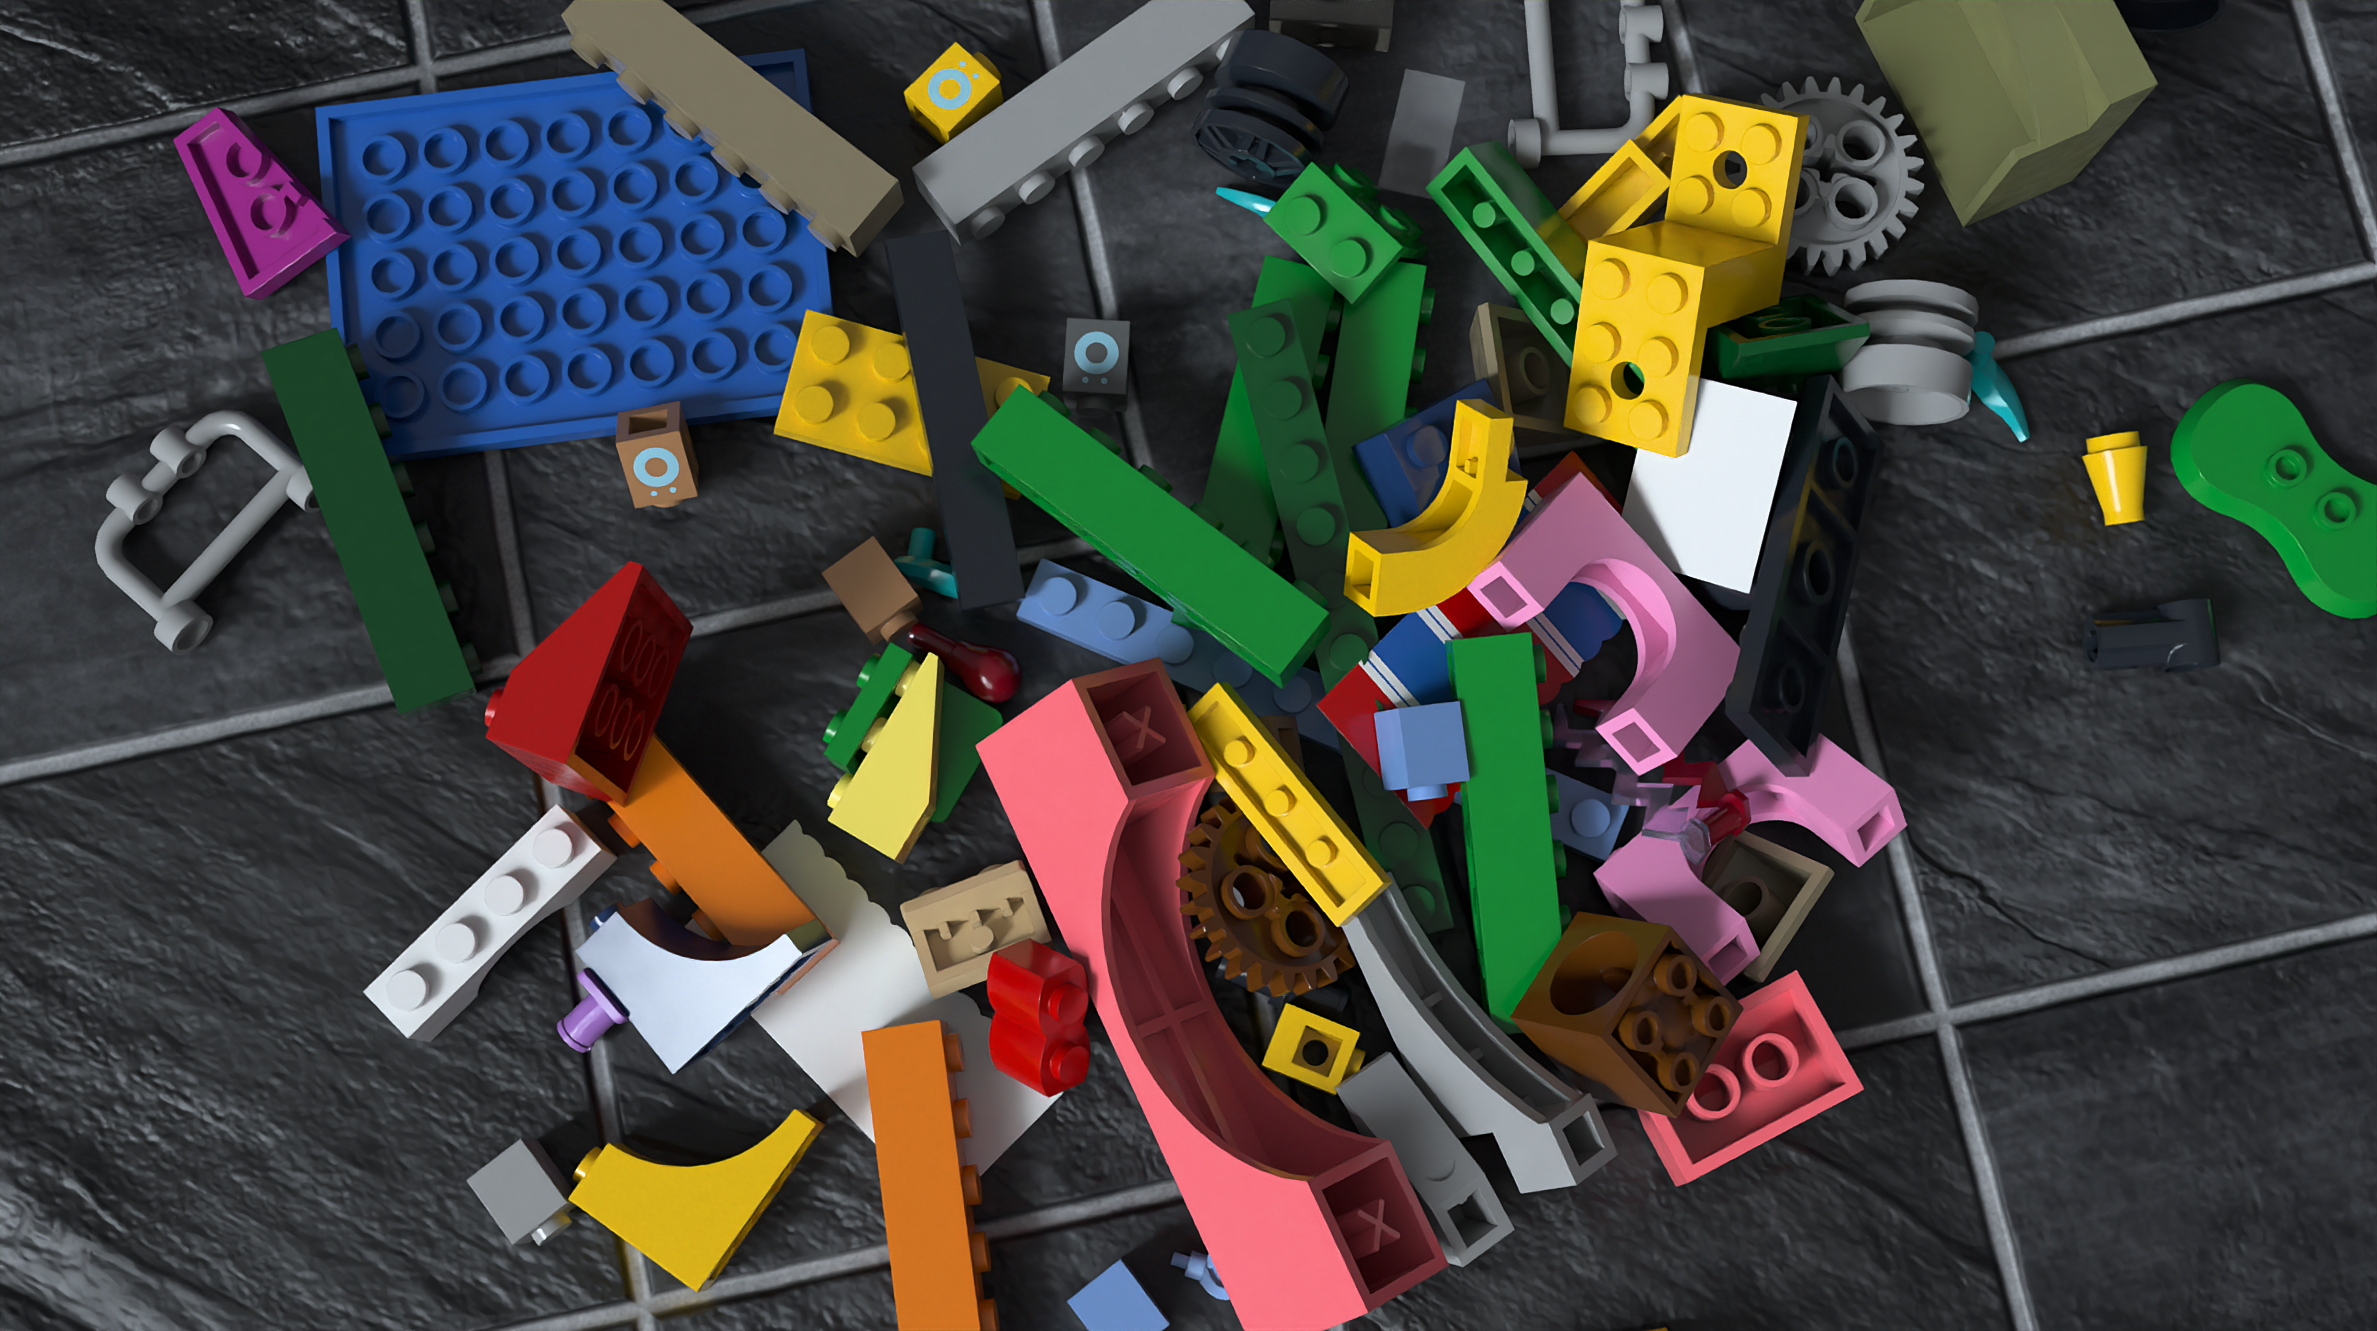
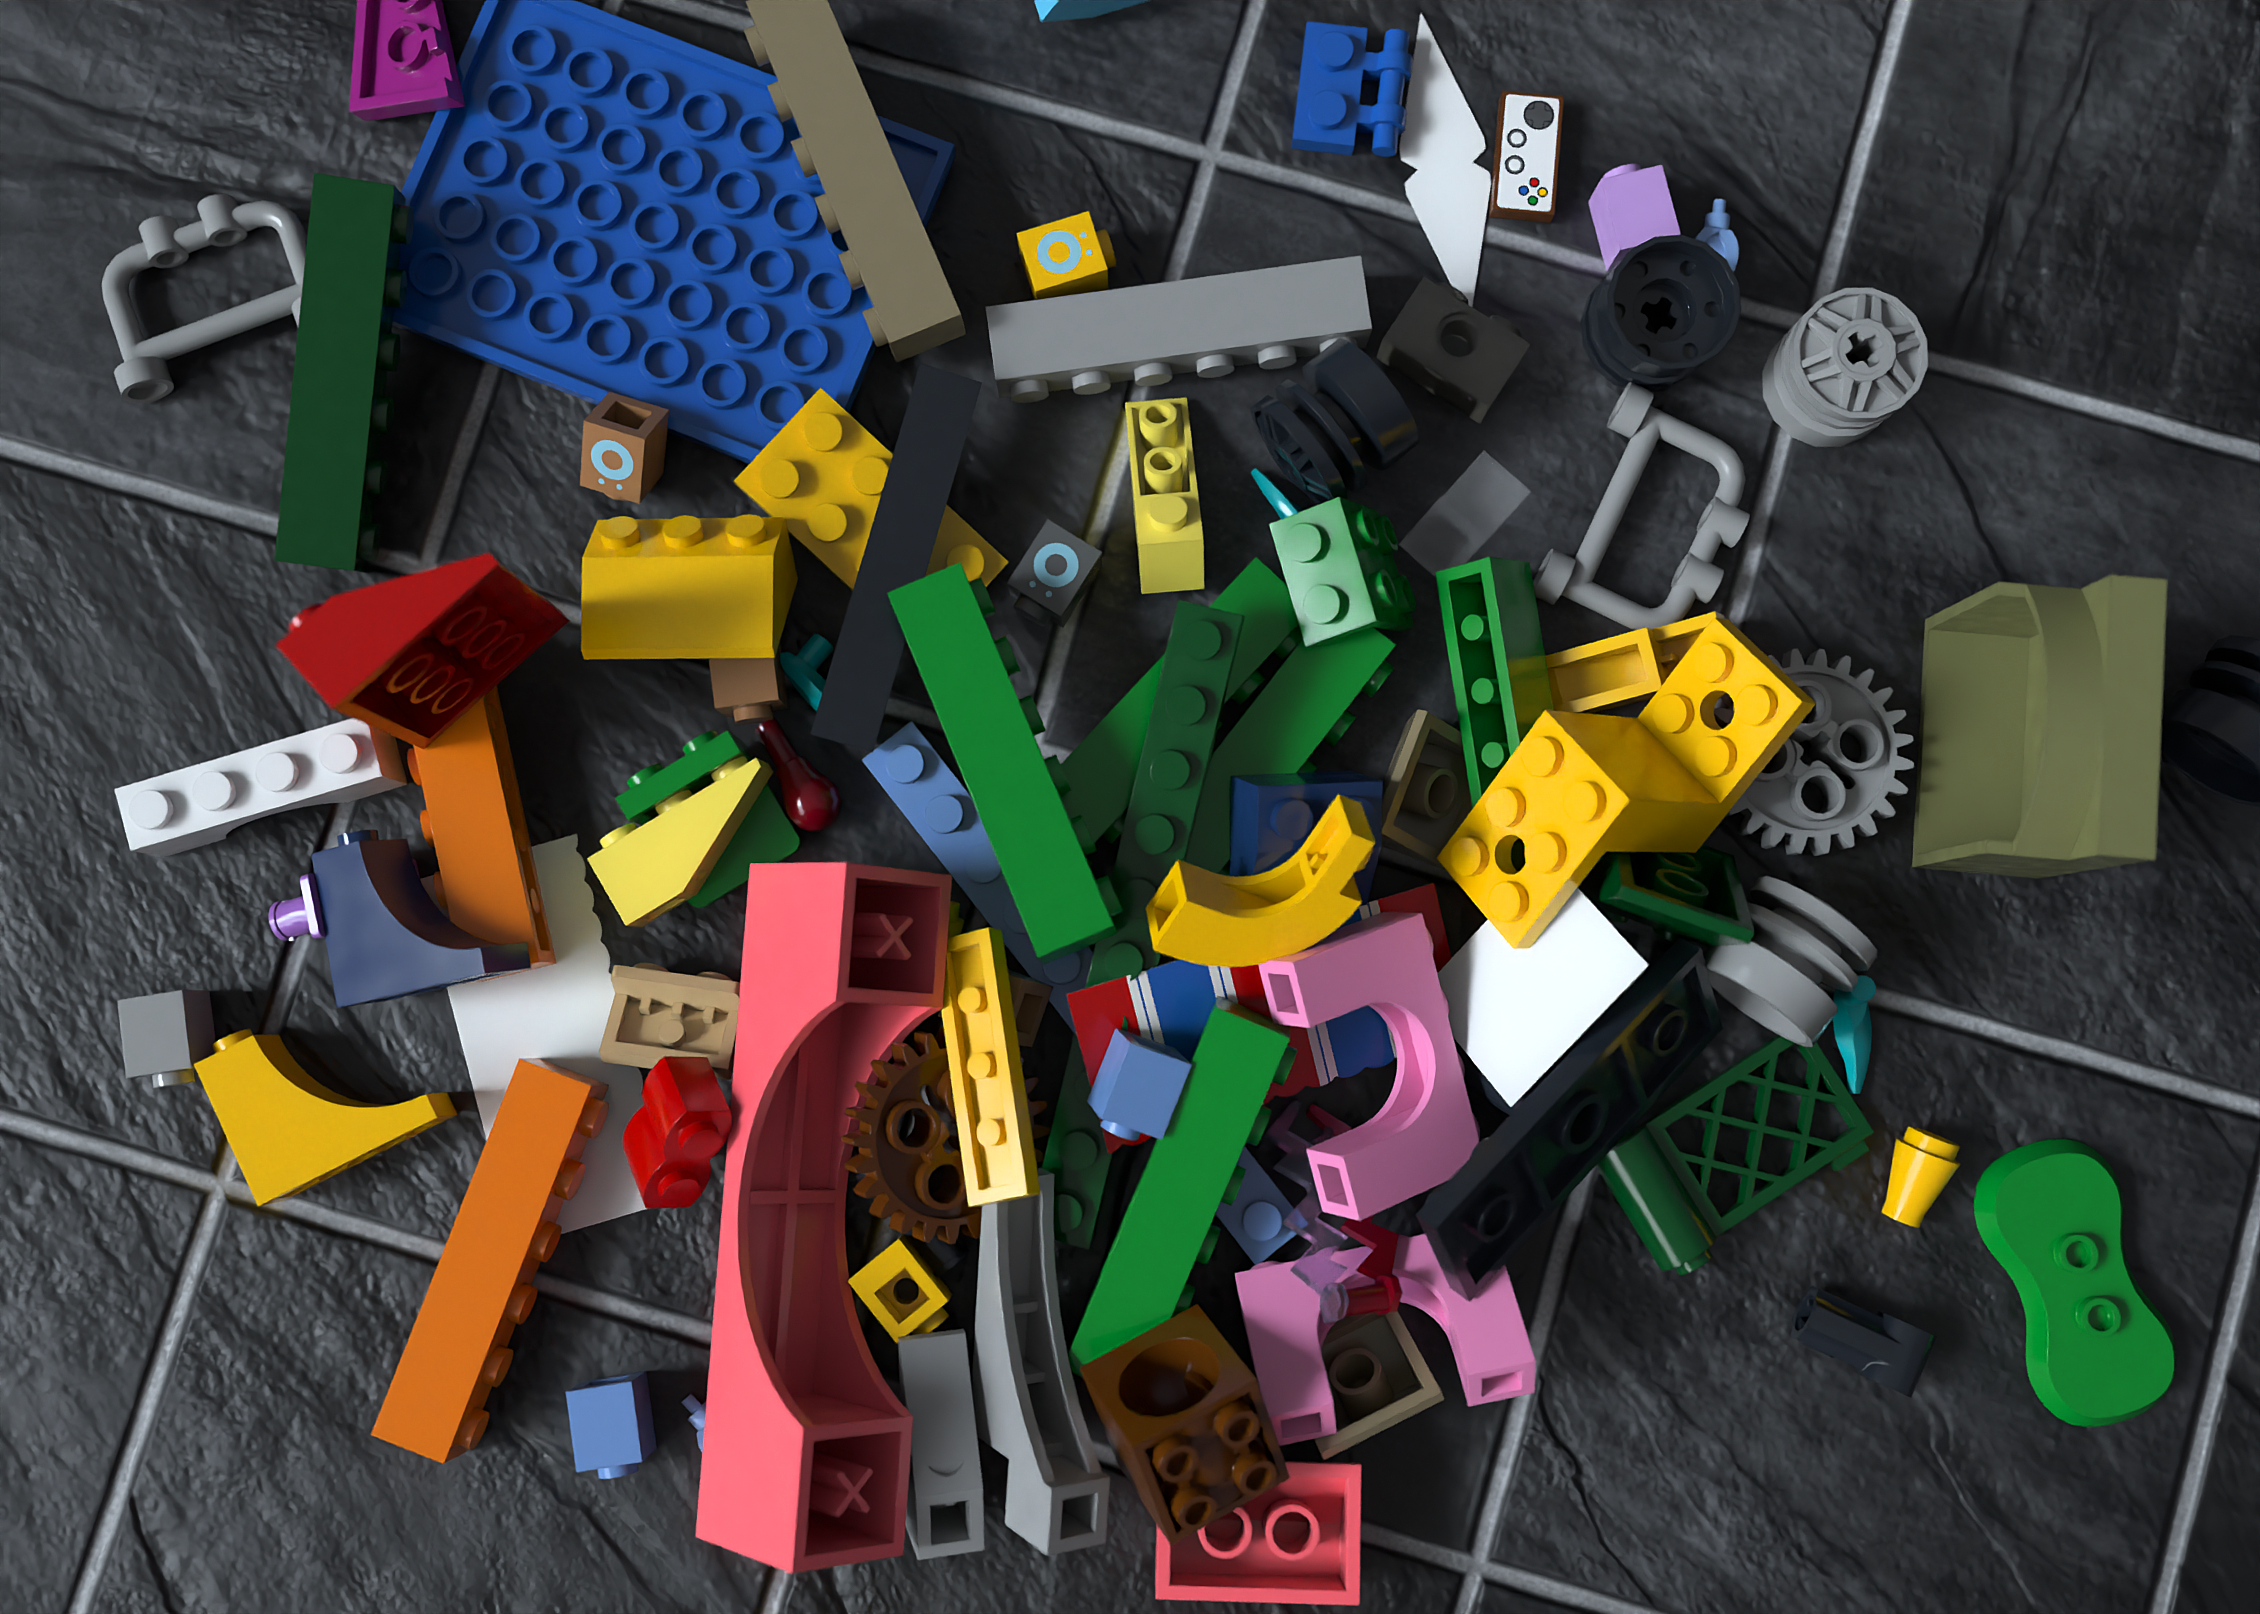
camera: 30 degrees right, 5 degrees up
(783, 541) = (686, 588): none -> yellow slope
(1156, 251) = (1165, 496): none -> light yellow slope
(1924, 610) = (1672, 1205): none -> dark green piece

